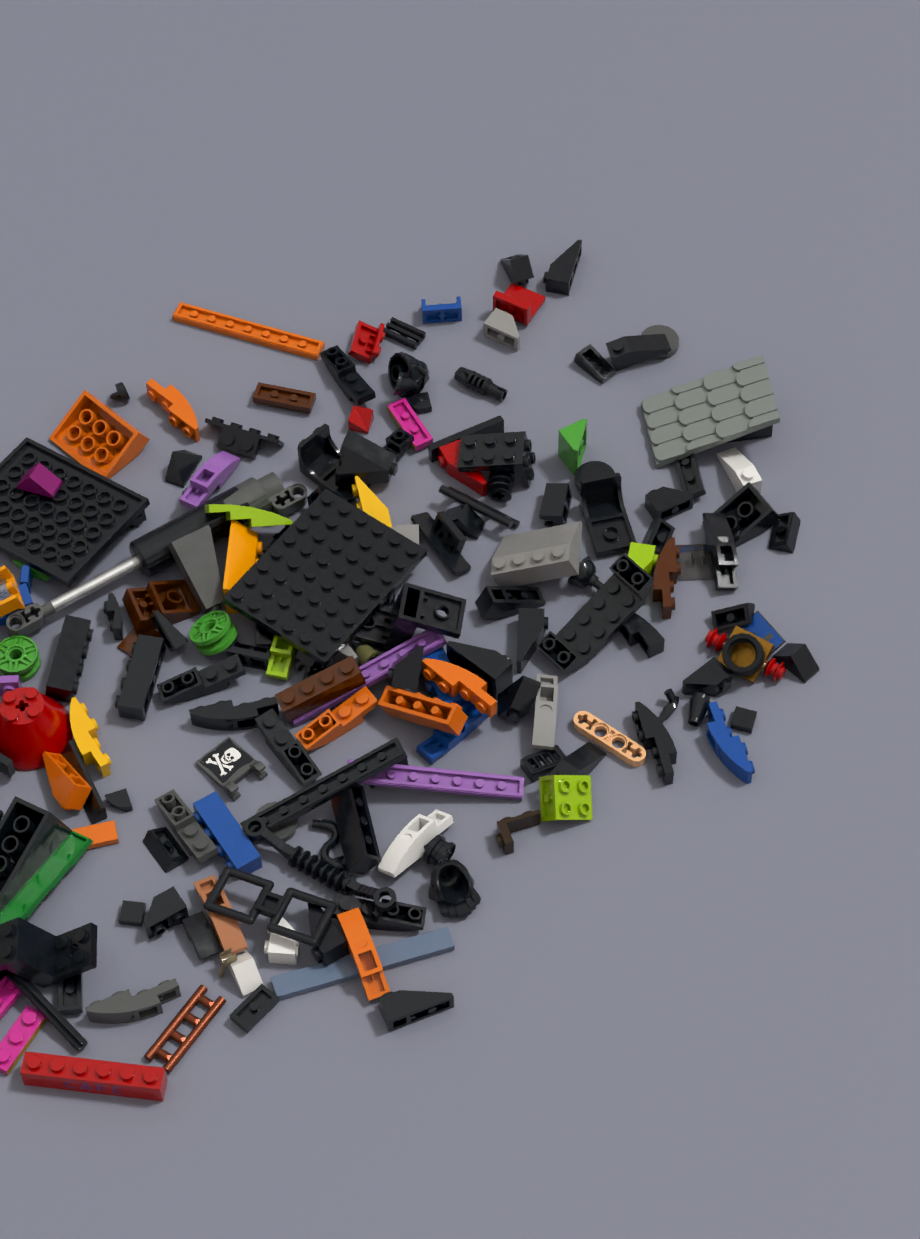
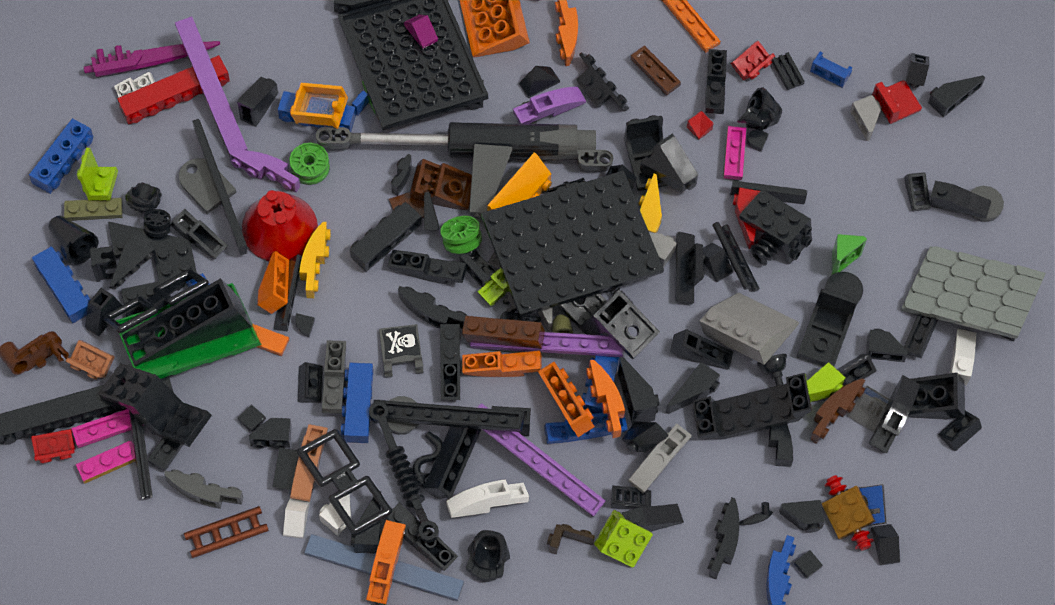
camera: 30 degrees right, 10 degrees up
(68, 658) = (344, 187): black brick -> none
(94, 1076) = (137, 526): red brick -> none
(226, 958) = (288, 499): dark tan hand -> none
(254, 516) = (556, 160): lime slope -> none
(254, 1008) = (283, 549): black plate -> none
(398, 443) = (710, 165): black slope -> none
(406, 669) = (575, 359): black slope -> none
(438, 850) = (499, 518): black wheel -> none
(480, 383) = (814, 151): black hinge -> none
(556, 504) = (796, 292): black hinge -> none
(607, 740) = (691, 512): light nougat beam -> none
(698, 708) = (778, 532): black cone -> none
(733, 616) = (862, 476): black slope -> none
(743, 638) = (858, 513): black tyre -> none

